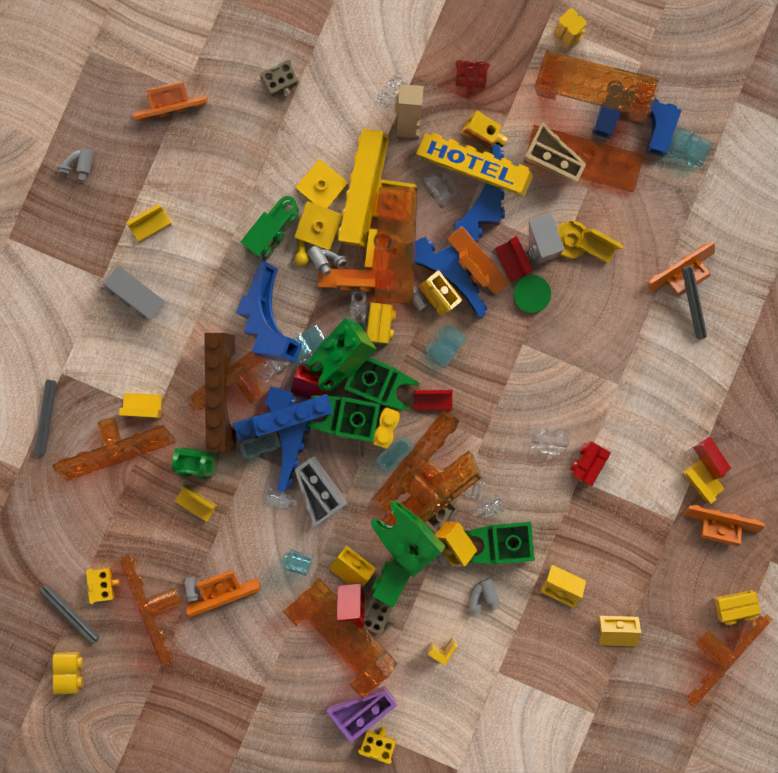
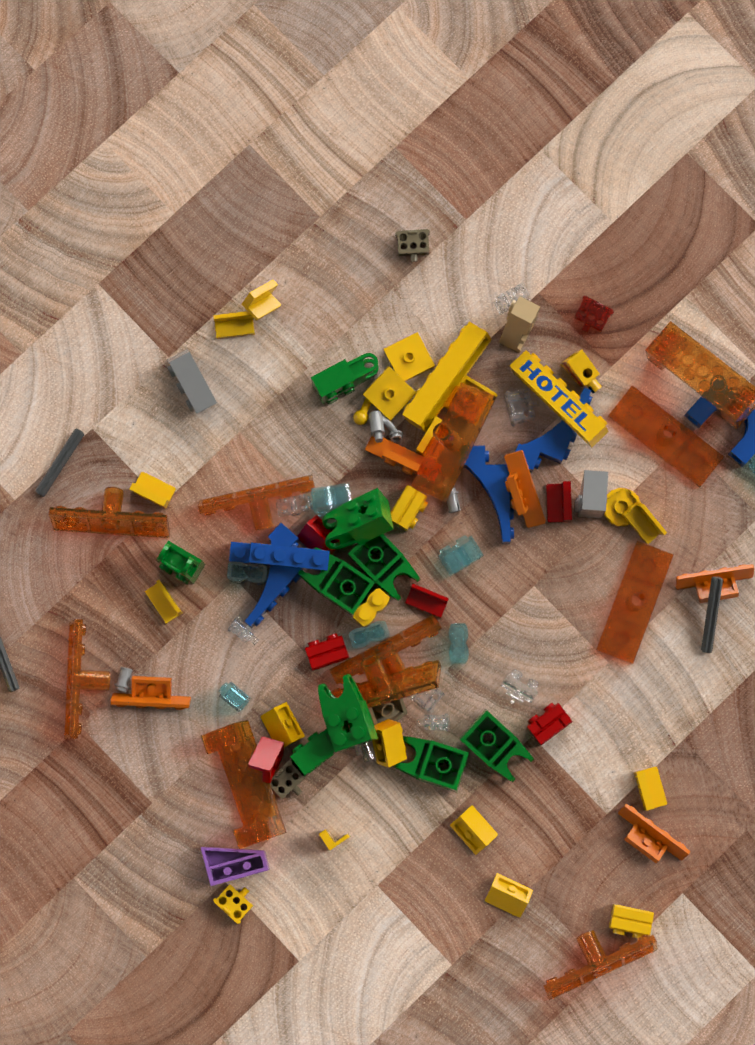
camera: 30 degrees right, 5 degrees down
(84, 163) = (198, 245): light grey plant -> none
(95, 585) = (37, 638): yellow piece -> none
(164, 191) = (261, 301): none -> yellow panel
(167, 99) = (301, 218): orange bracket -> none
(218, 352) = (246, 469): reddish brown arch -> none
(261, 324) = (297, 460): blue arch -> none
(319, 491) = (283, 639): light grey wedge -> none
(358, 308) = (394, 485): clear piece -> none
(363, 485) = (326, 652): none -> red brick
(440, 293) = (475, 503): yellow brick -> none
(480, 431) = (458, 637): none -> clear light blue brick
(488, 590) = (401, 801): light grey plant -> none
(532, 294) = (562, 542): green tile -> none
(554, 156) = (636, 422): tan wedge -> none
(555, 506) = (499, 749): none -> green brick
(570, 28) = (703, 310): yellow brick -> none
(619, 341) = (627, 621): none -> clear orange plate
(712, 458) = (667, 769): red panel -> none

